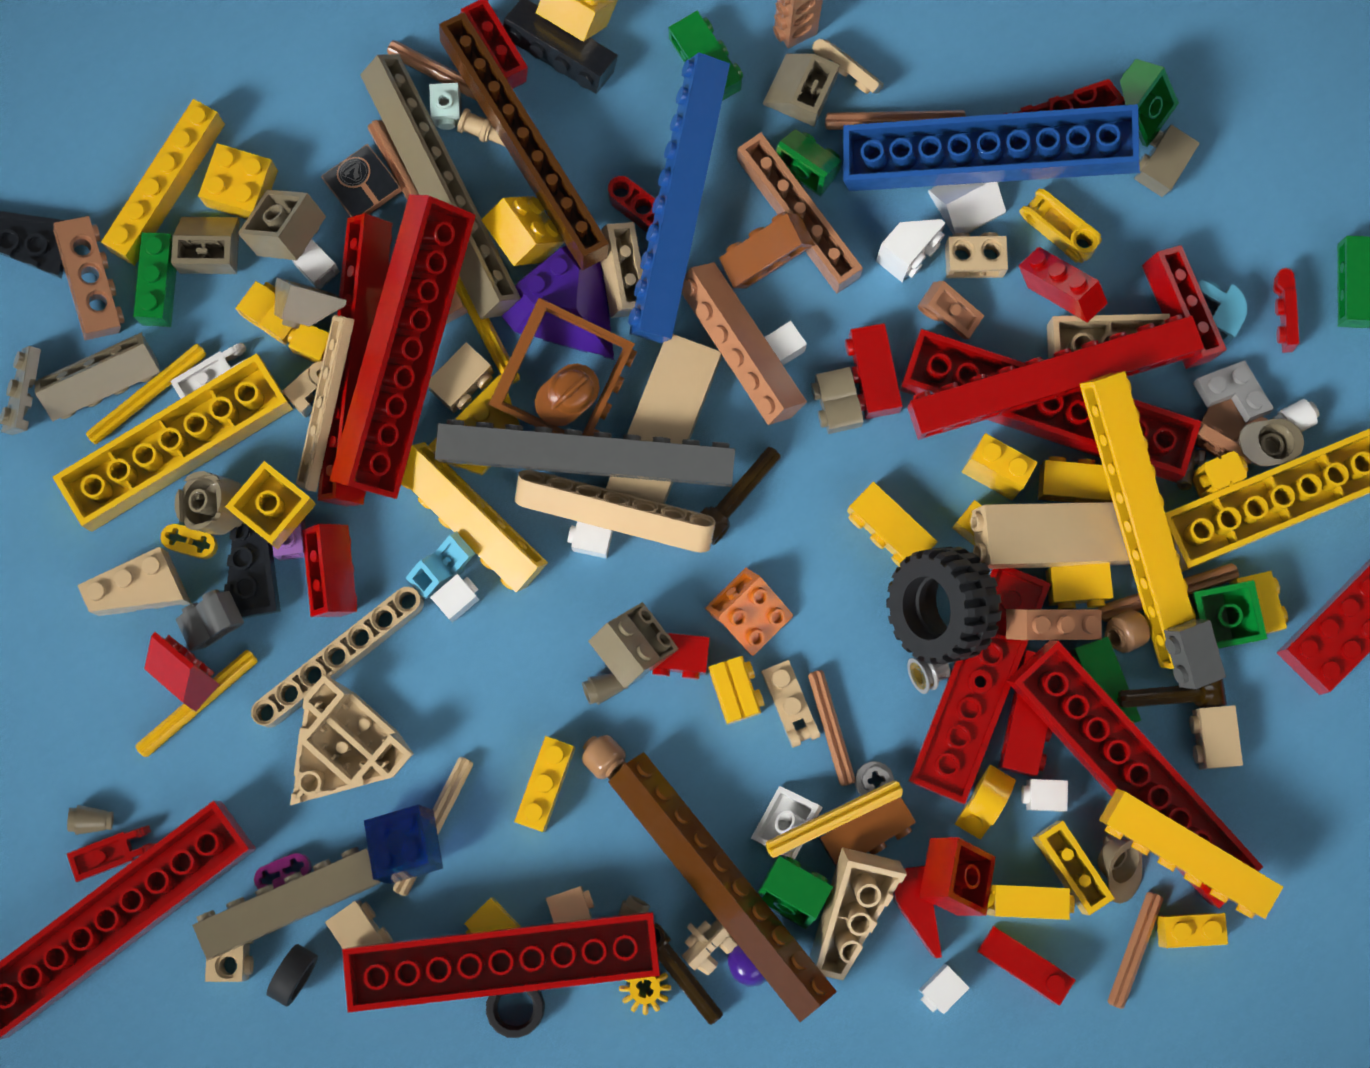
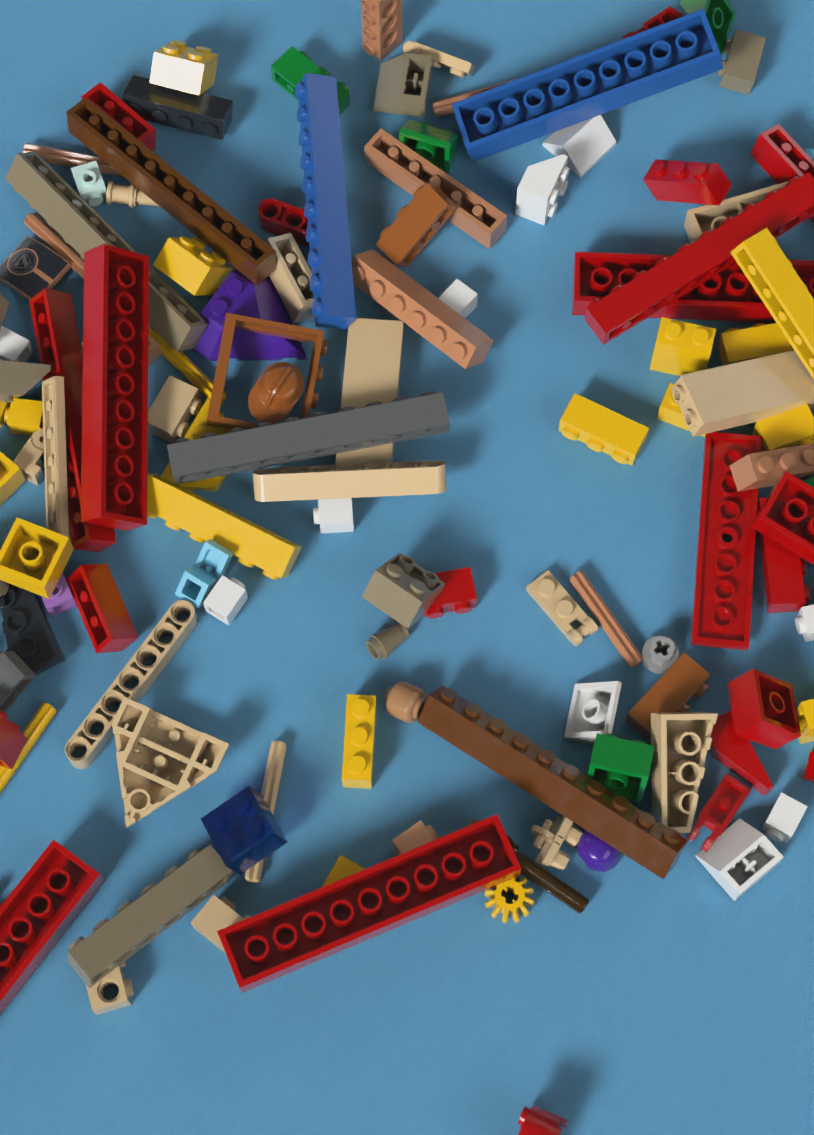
camera: 15 degrees left, 10 degrees down
(280, 866) = (132, 888): magenta beam -> none
(292, 975) = (173, 980): black tyre -> none
(515, 1031) = (398, 974): black tyre -> none
(735, 689) = (508, 609): yellow brick -> none
(740, 492) = (458, 436): dark brown axle -> none
(749, 610) = (499, 537): orange bracket -> none
(834, 818) = (635, 688): yellow axle -> none
(838, 400) = (520, 336): dark tan brick -> none
(874, 371) = (544, 303): red brick -> none
(881, 962) = (719, 809): none -> red hinge
(885, 1017) = (740, 858): none -> white slope
(925, 675) = (676, 544): light grey piece -> none
(947, 305) = (589, 229): nougat plate -> none
(971, 599) = (701, 469): black tyre -> none
(977, 264) = (605, 190): tan brick -> none
(986, 802) = (767, 641): yellow brick -> none
(1061, 226) = (668, 139): yellow piece -> none

